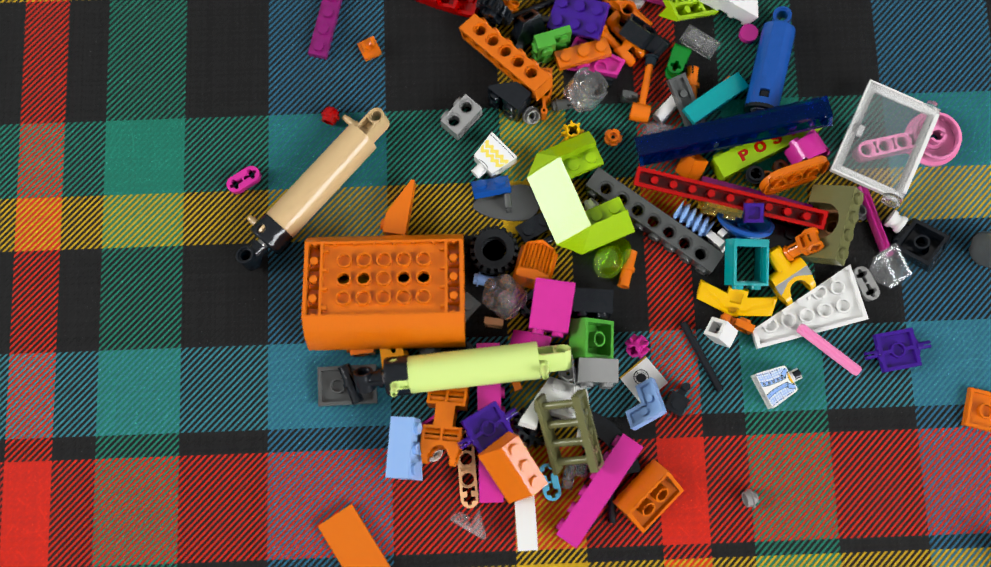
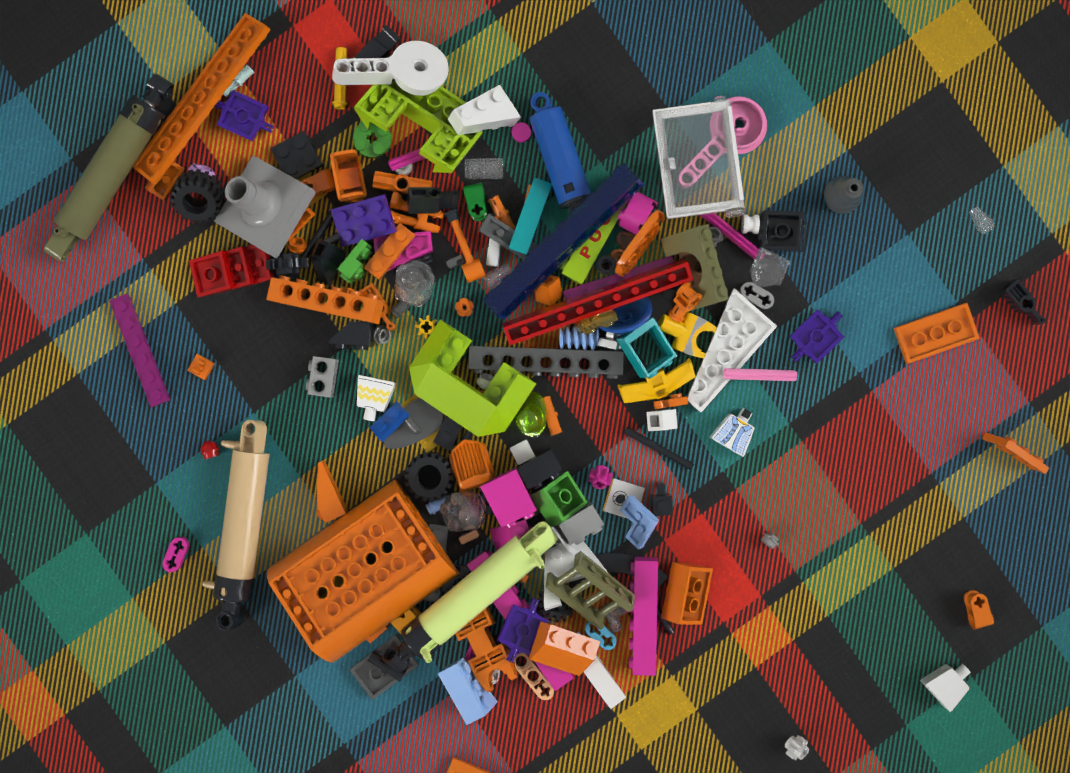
camera: 30 degrees left, 10 degrees up
(475, 527) = (565, 710): clear slope -> none
(584, 280) = (522, 452): none -> white tile
(753, 212) = (625, 304): dark purple tile -> none

